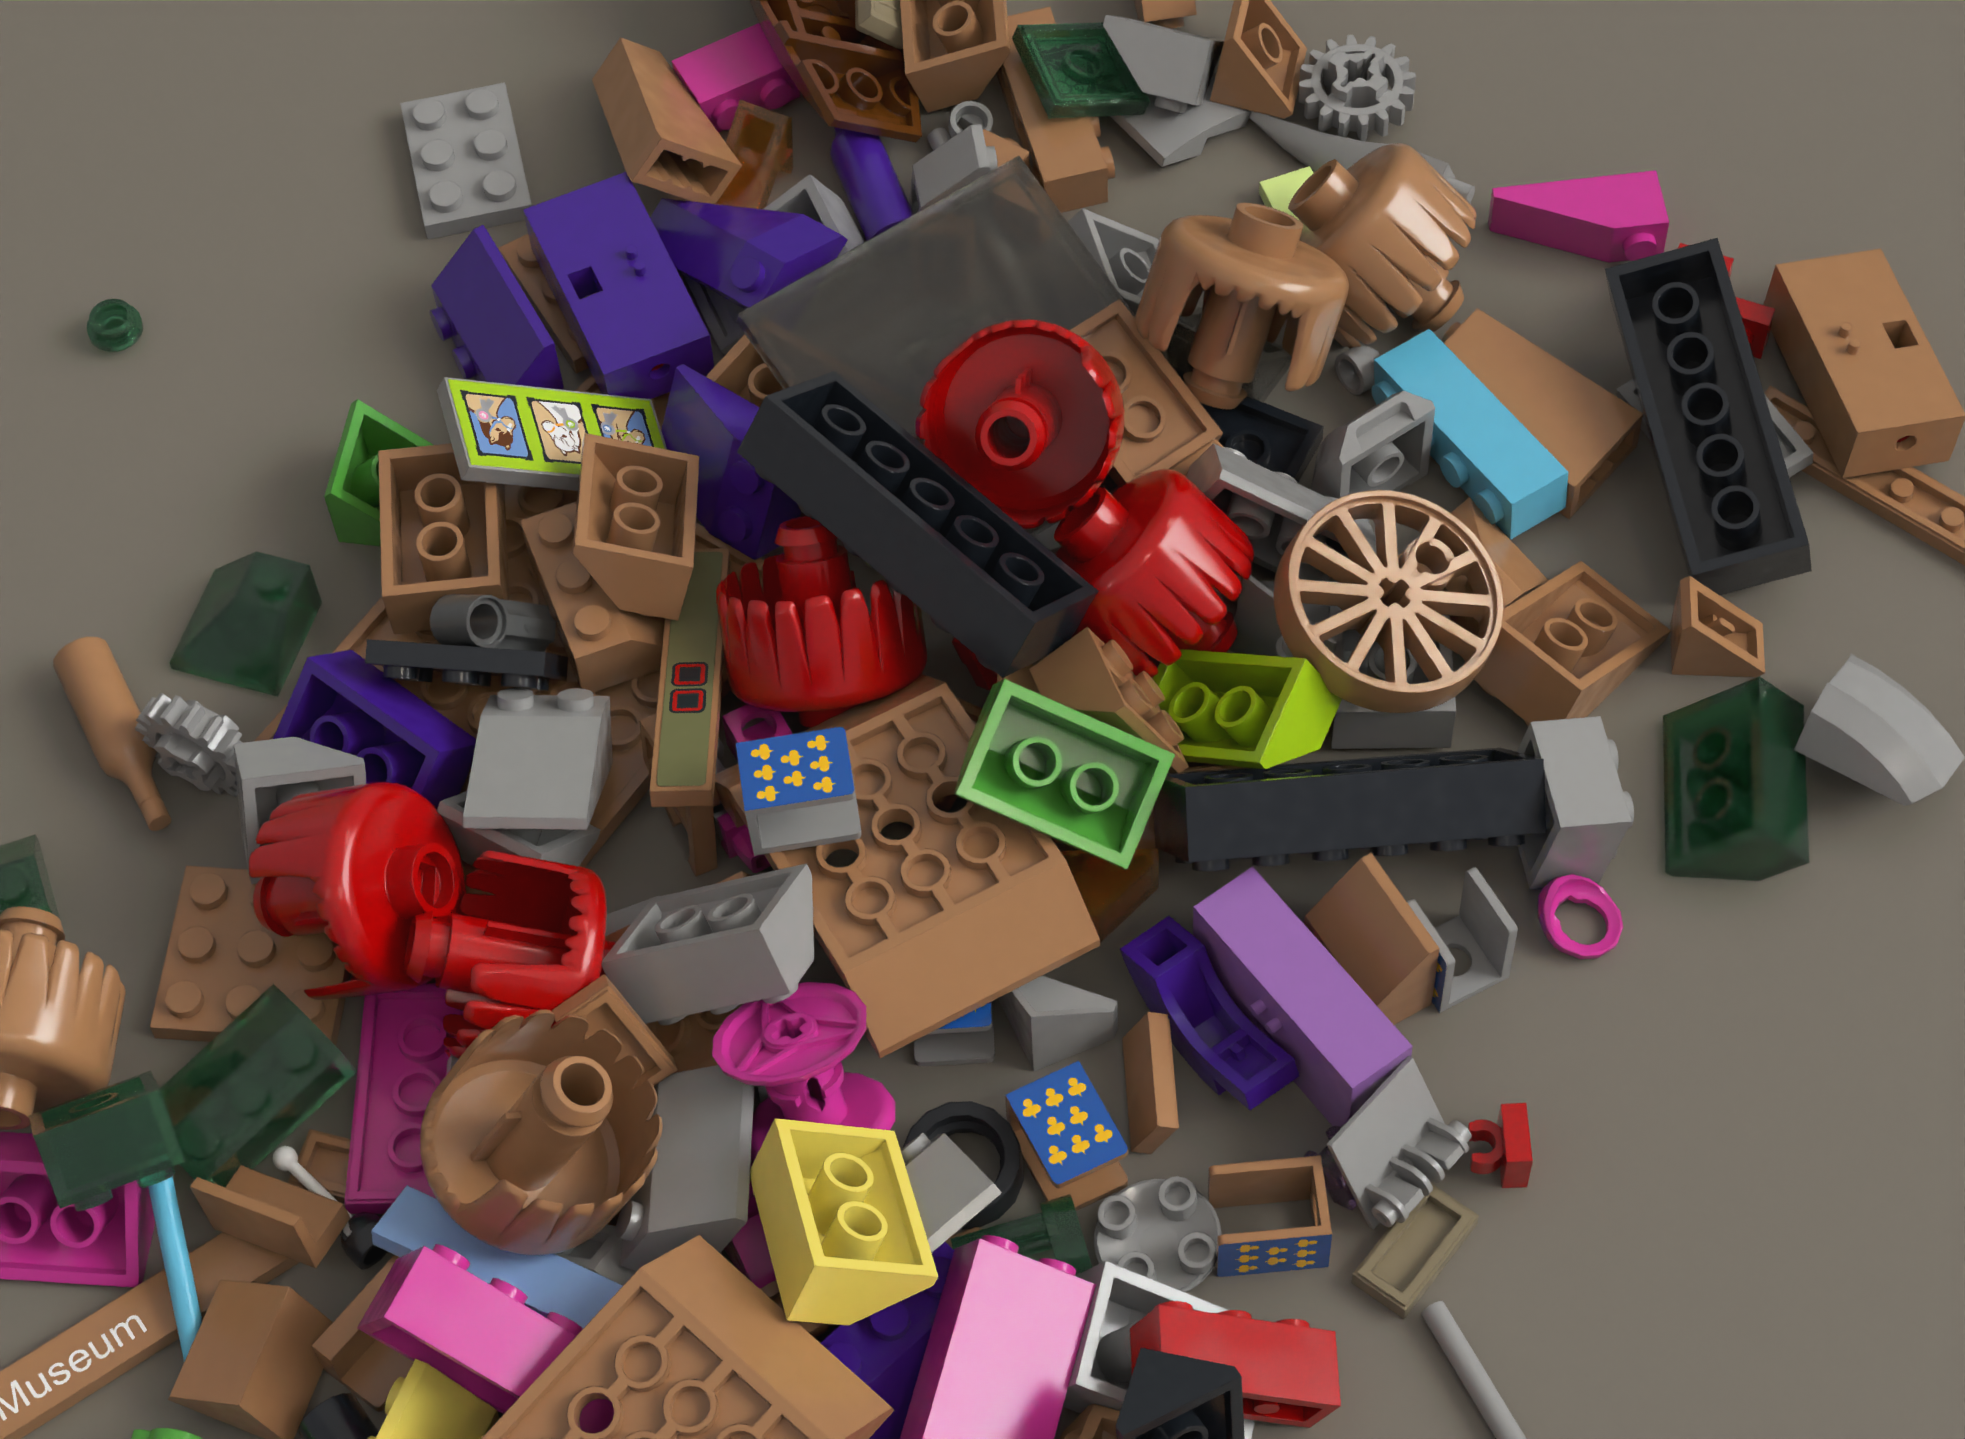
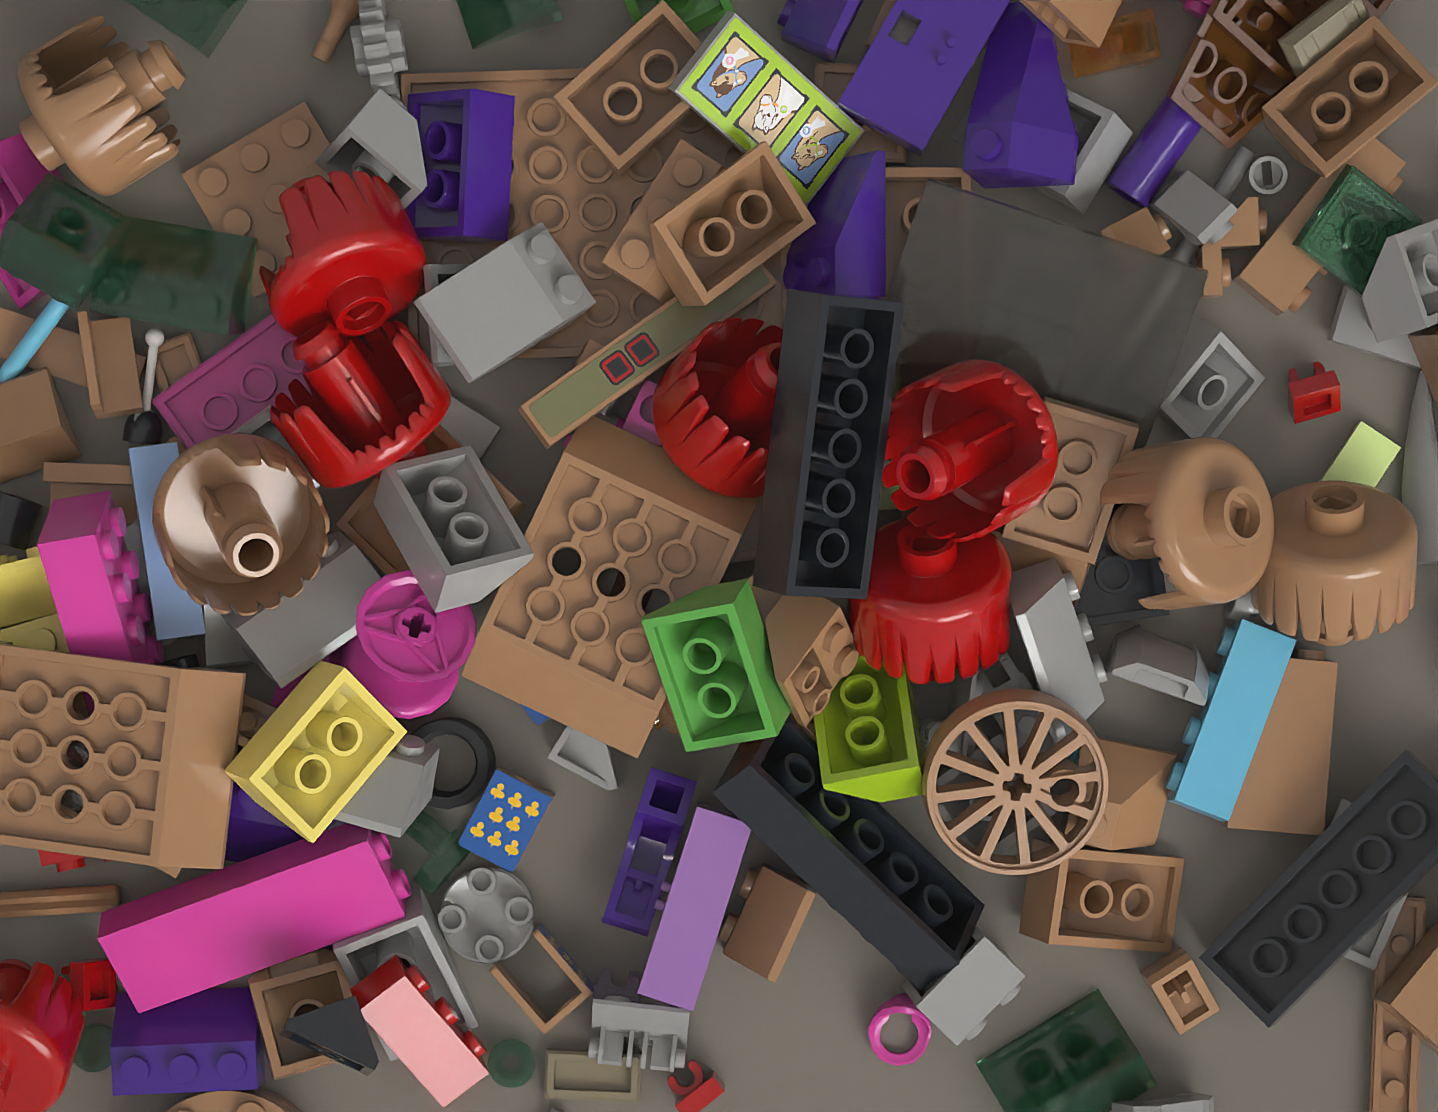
camera: 55 degrees right, 30 degrees up
(466, 664) = (554, 186): black plate -> none
(491, 623) = (590, 180): dark grey piece -> none
(609, 1010) = (346, 510): medium nougat tile -> none
(798, 790) = (577, 512): piece -> none
(1150, 1083) = (584, 841): medium nougat tile -> none
(1203, 194) = (1313, 395): none -> red tile
(1346, 1304) = (511, 1078): none -> clear green plate
(1482, 932) = (830, 989): light grey piece -> none

